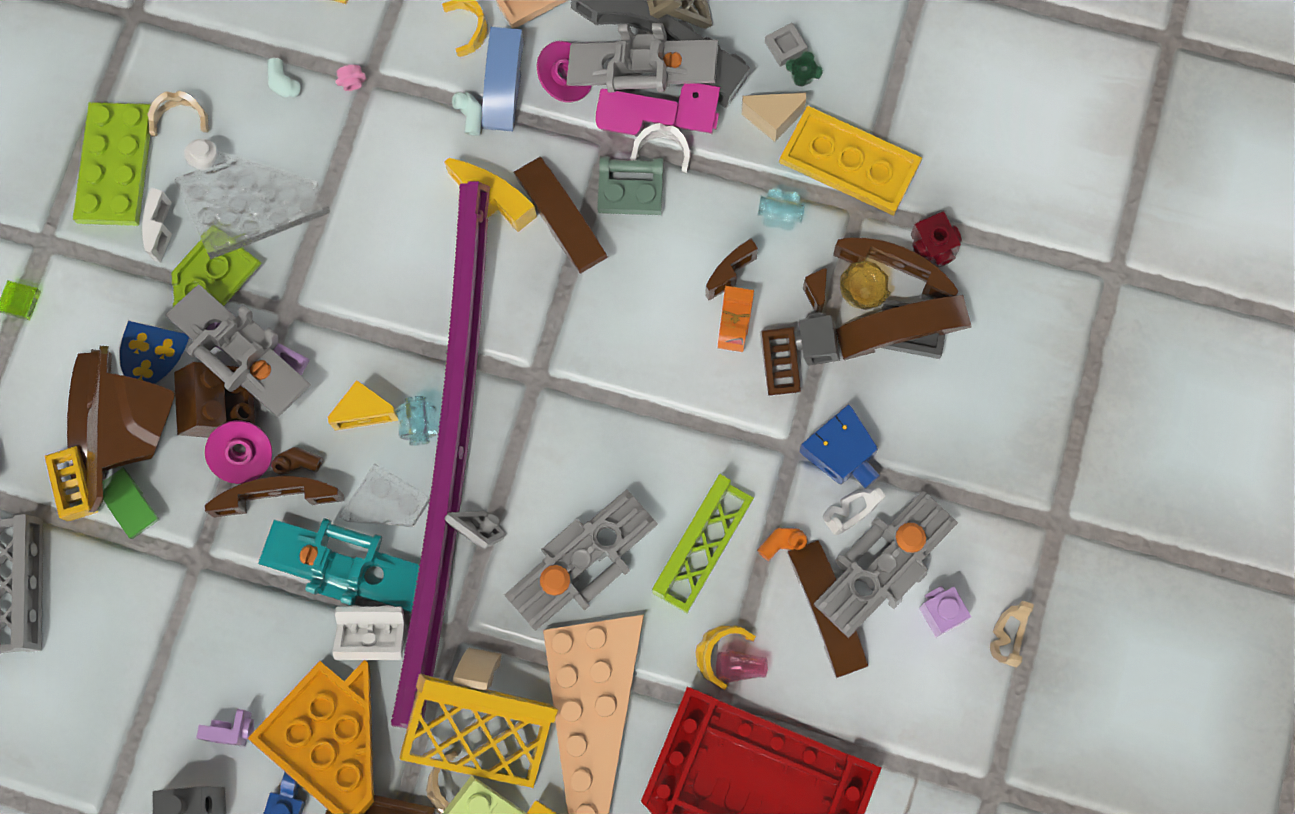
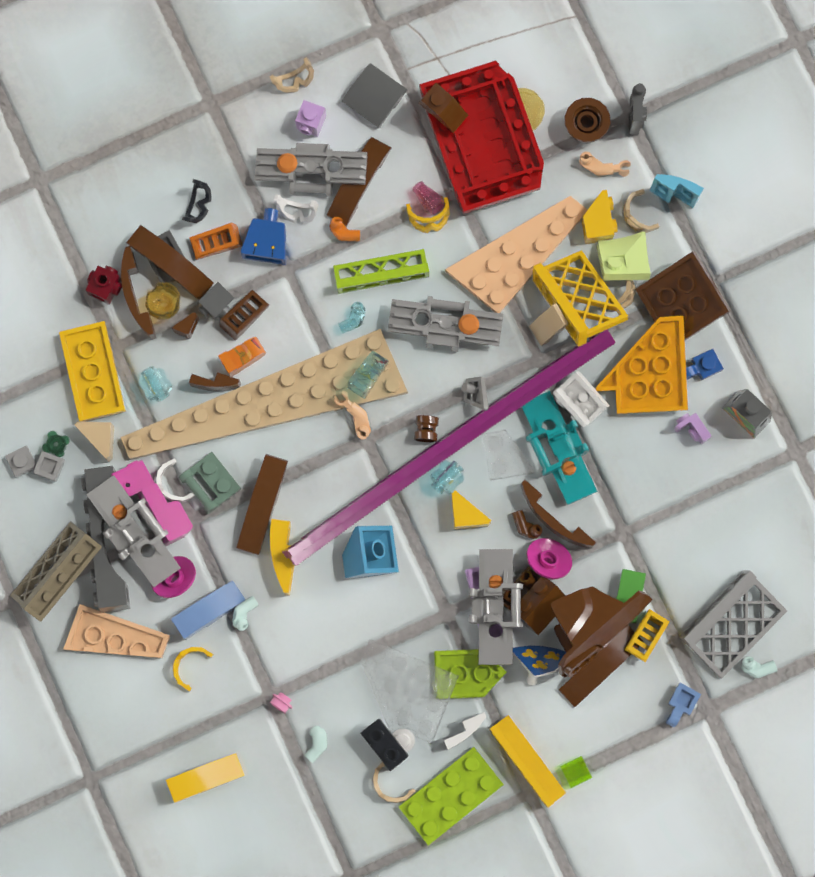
camera: 135 degrees left, 5 degrees up
(71, 258) = (527, 761): none -> yellow fence
(215, 130) = (384, 744): none -> black bracket
(410, 278) = (370, 552): none -> dark azure slope
(487, 443) = (426, 428): none -> reddish brown wheel
(567, 387) = (359, 415): none -> light nougat arm
(596, 426) = (367, 374): none -> clear light blue leg
(631, 385) = (276, 399): none -> tan wing
(672, 471) = (356, 318): none -> clear light blue arm
(816, 25) = (21, 461): none -> light grey plate
(828, 767) = (443, 107): none -> reddish brown slope
(879, 416) = (235, 243): none -> orange slope
(914, 710) = (374, 95): none -> dark grey slope
(937, 388) = (201, 203): none -> black helmet

